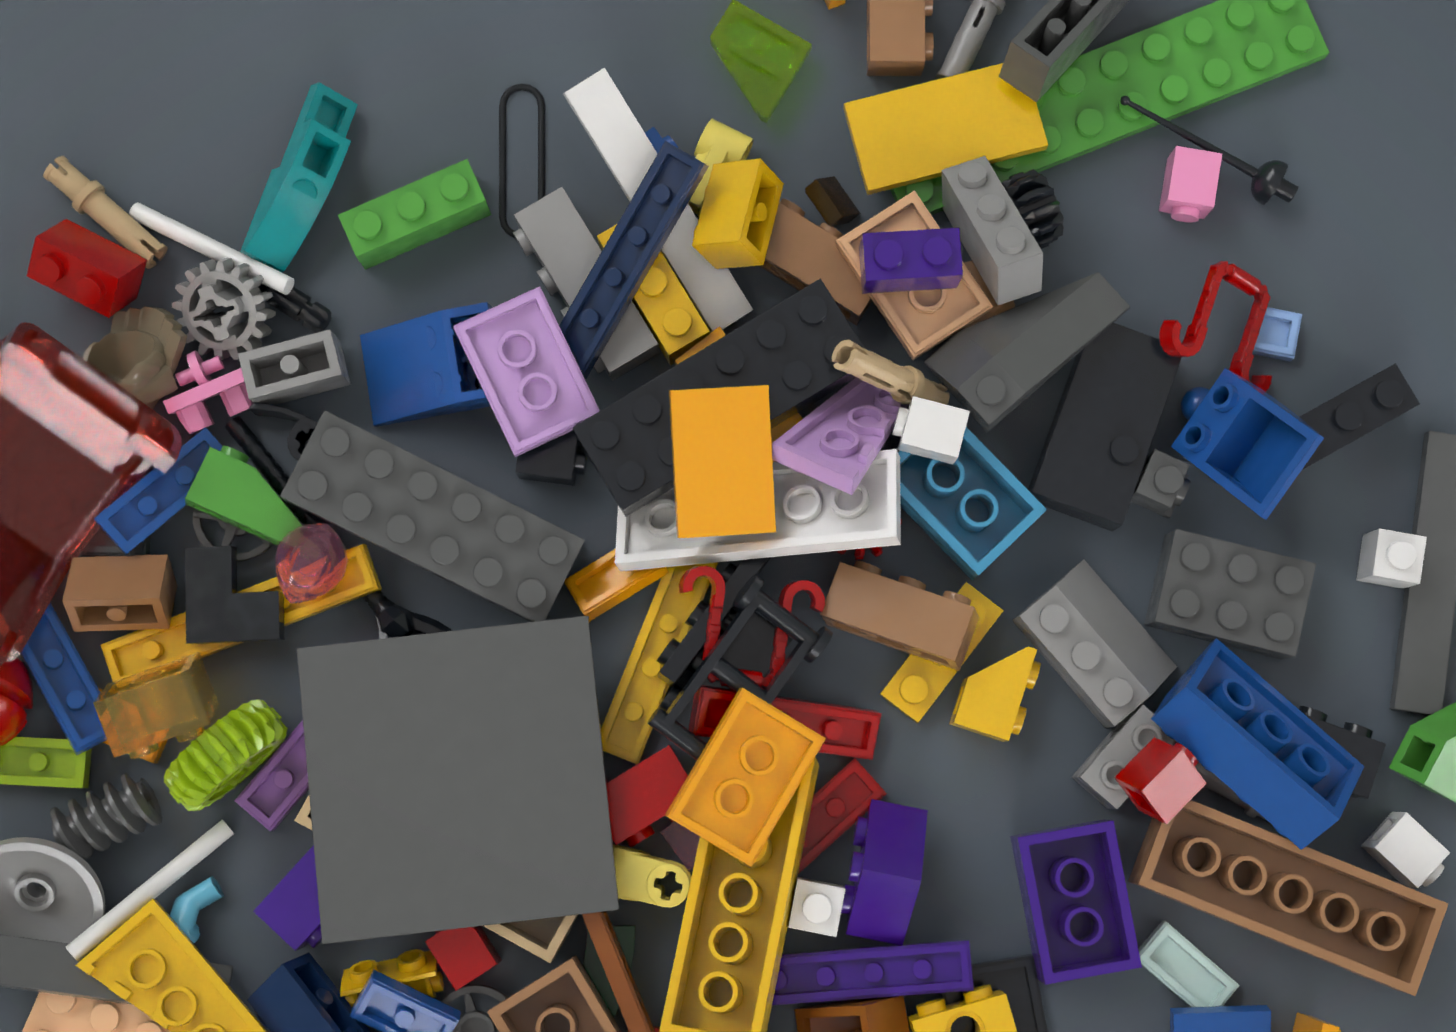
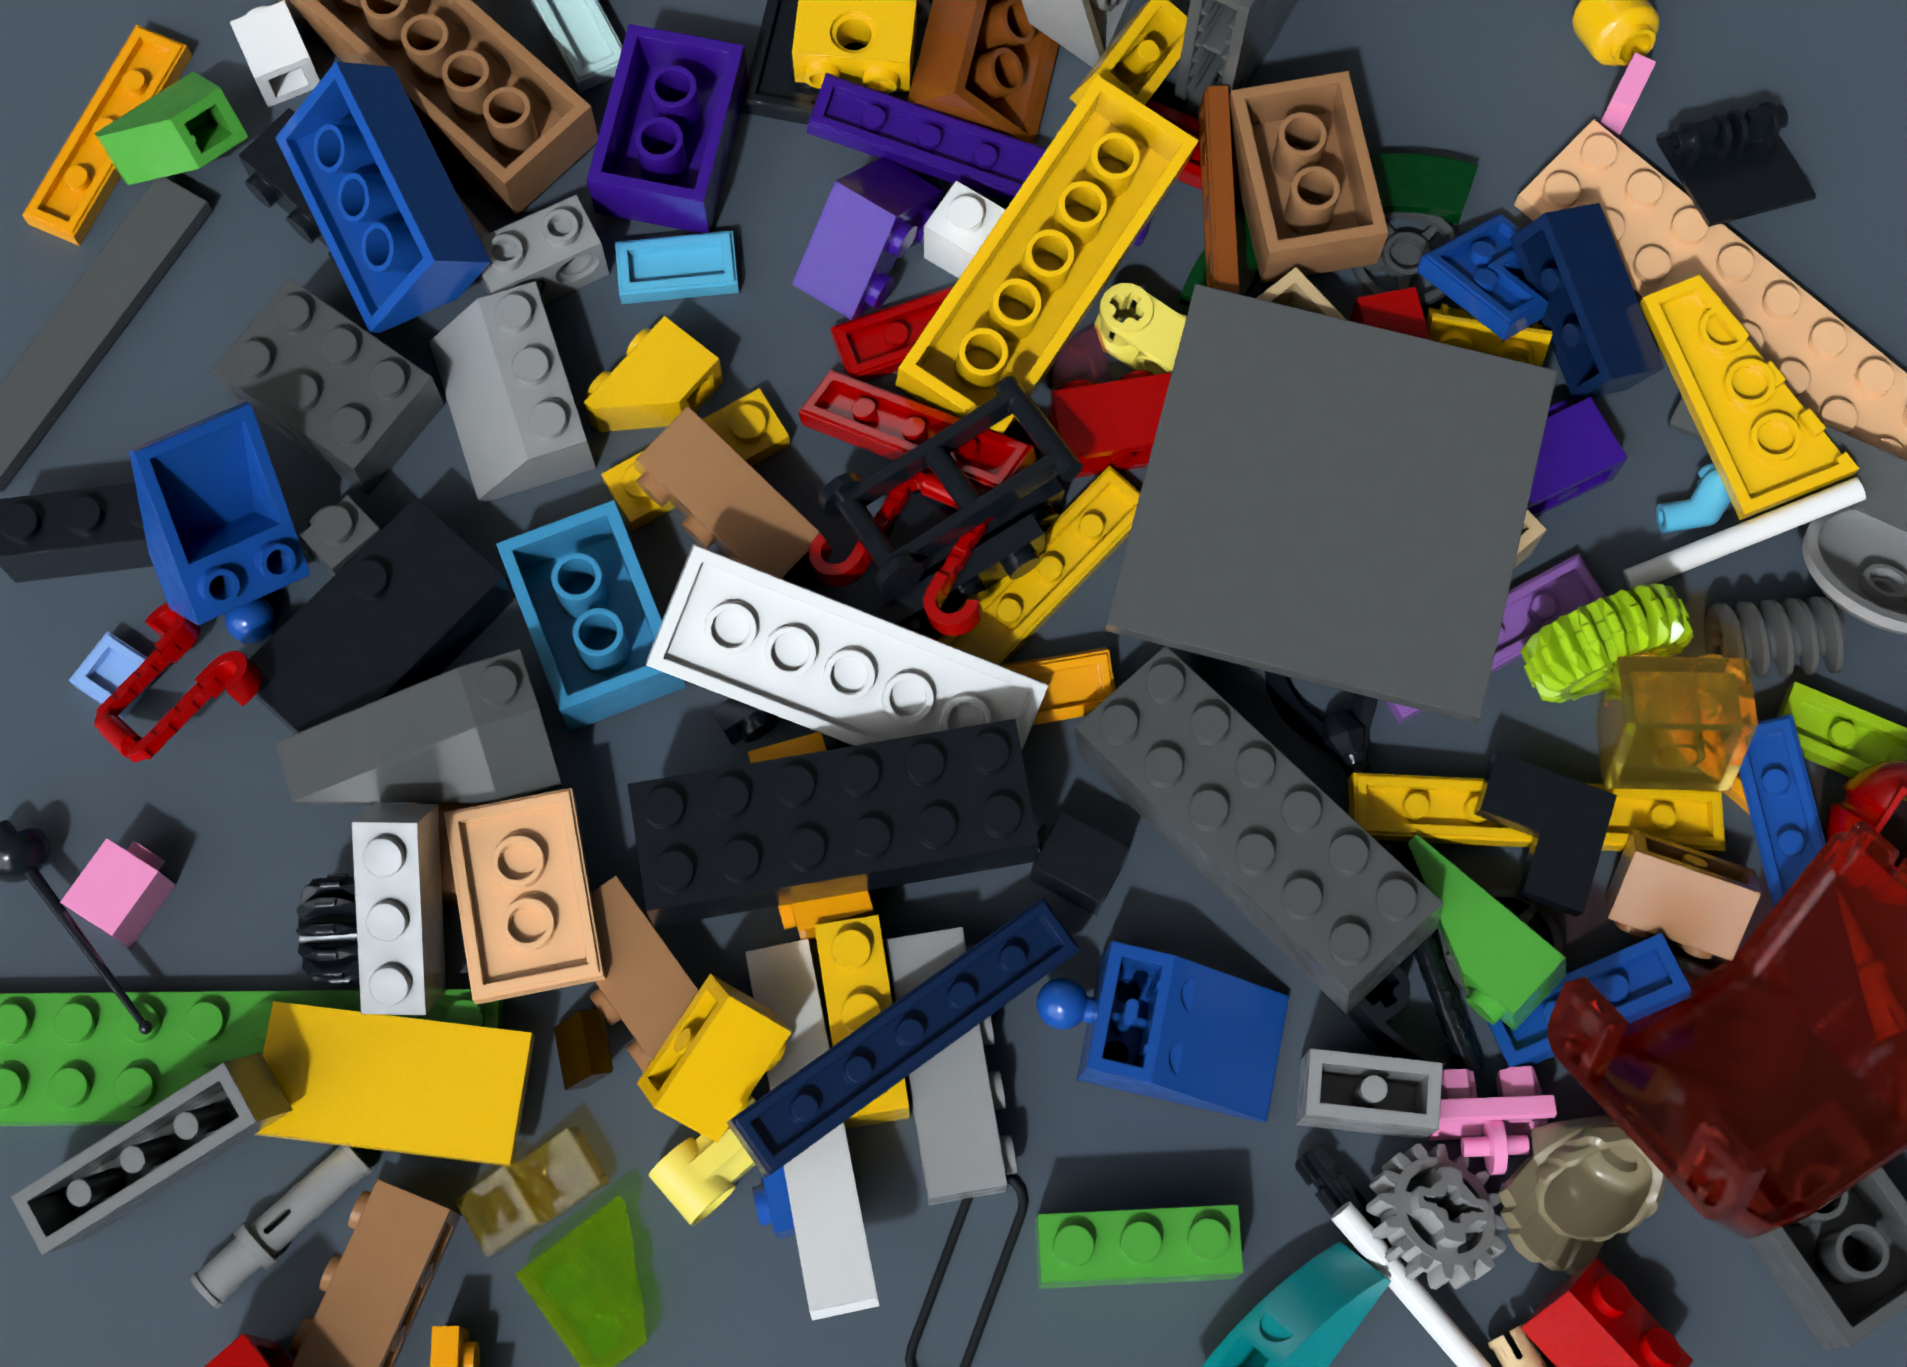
camera: 160 degrees left, 10 degrees down
(310, 562) = (1432, 826): clear pink piece -> none
(526, 371) = (1068, 954): lavender tile -> none
(722, 461) = (867, 723): light orange tile -> none
(745, 777) = (990, 366): light orange tile -> none
(821, 108) = (532, 1192): none -> clear yellow slope
(840, 436) = (695, 719): lavender wing -> none
(884, 374) = (603, 752): tan pin -> none
(910, 260) = (521, 892): dark purple brick -> none
(931, 429) = (592, 676): white brick -> none
(1022, 799) = (676, 267): none -> medium azure tile
(1161, 779) = (510, 194): brick -> none
(1391, 558) = (120, 355): white brick -> none

